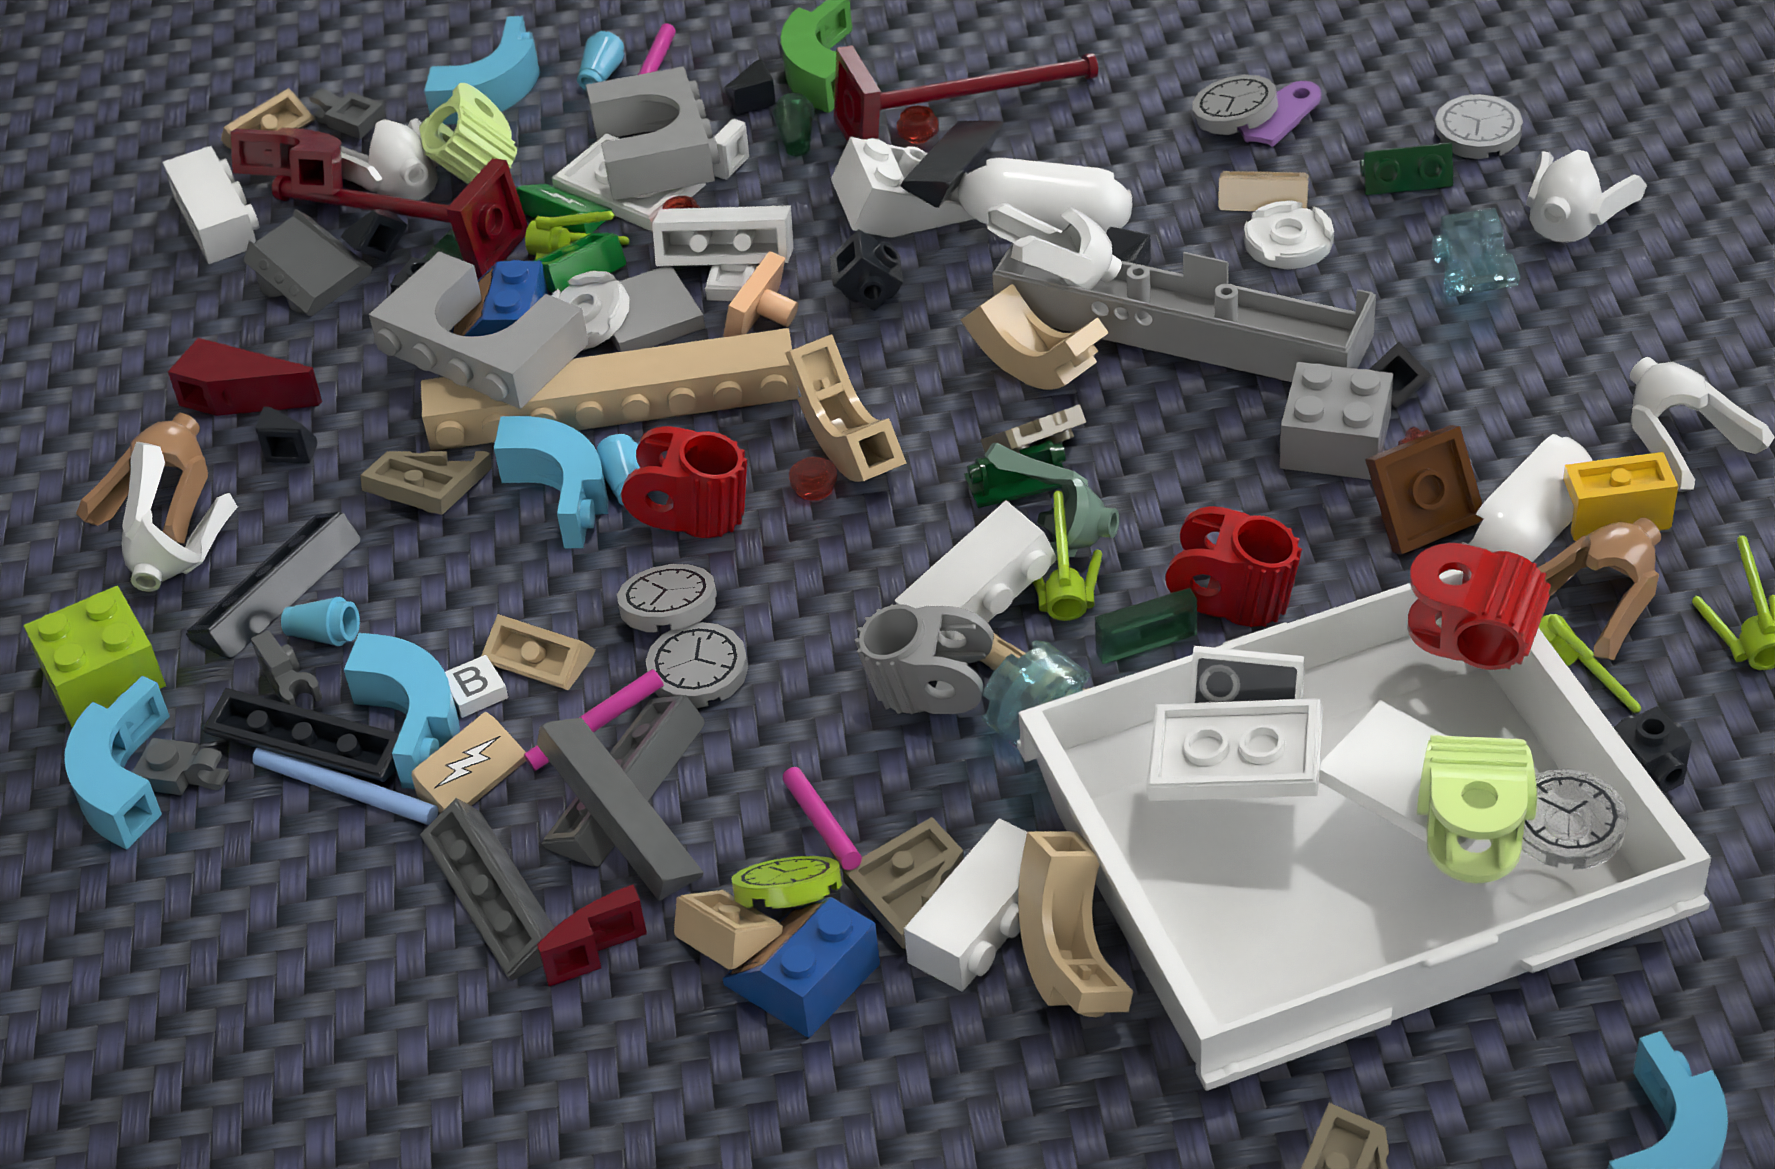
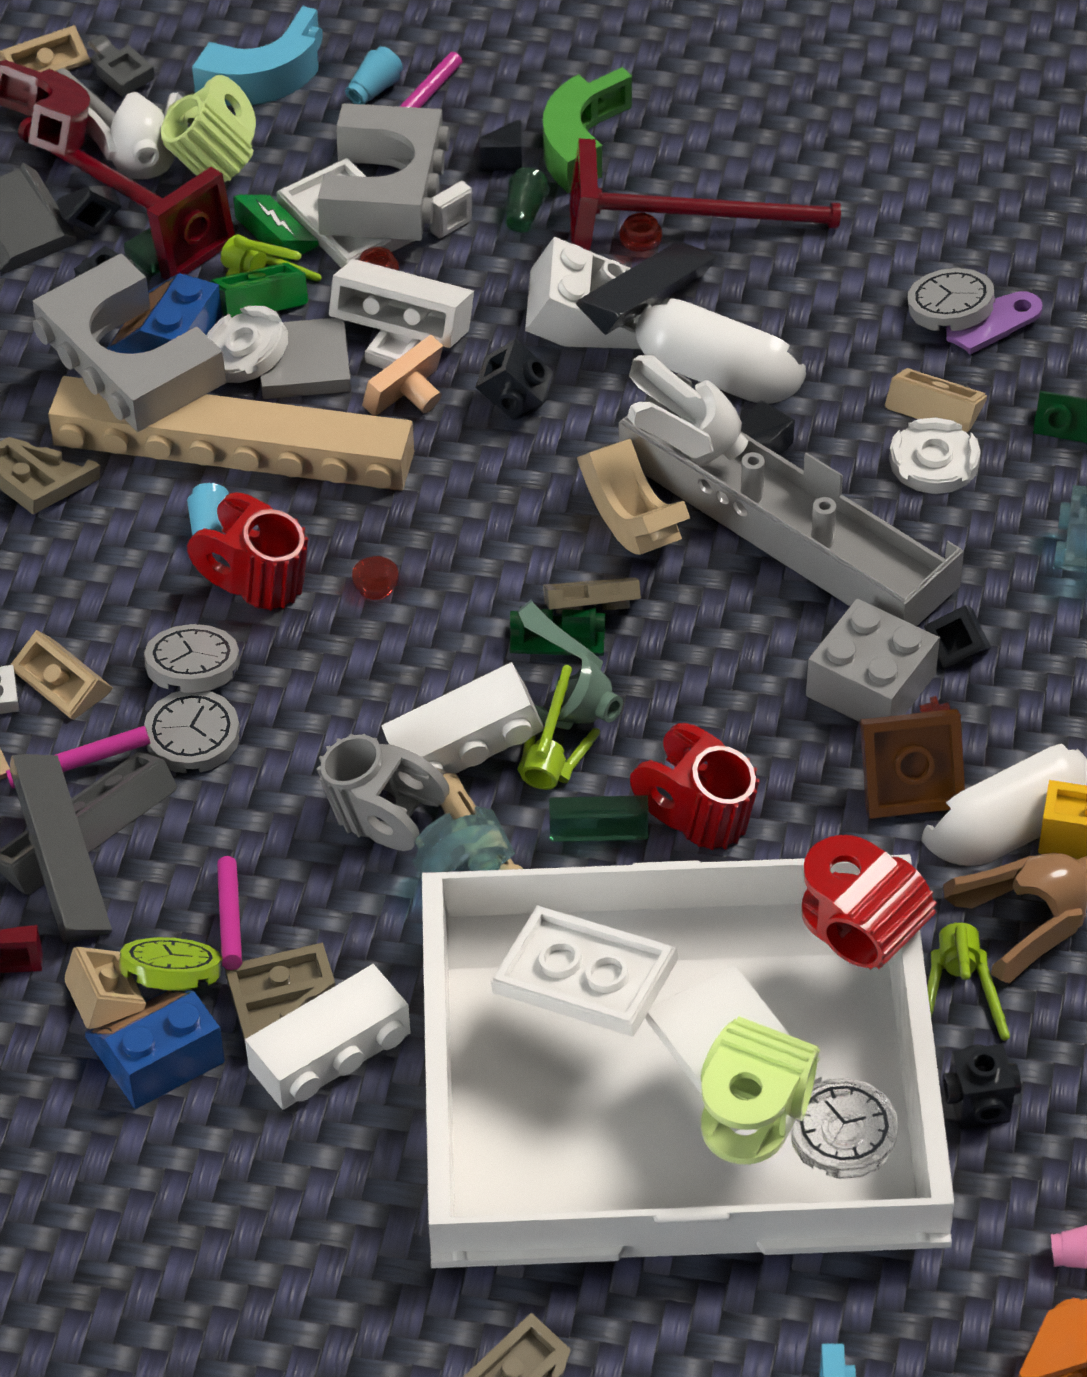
camera: 15 degrees right, 5 degrees up
(558, 456) = (152, 483): medium azure arch -> none
(841, 424) = (421, 521): tan arch -> none
(1058, 928) = (380, 1082): tan arch -> none
(1244, 676) = (625, 906): slope -> none

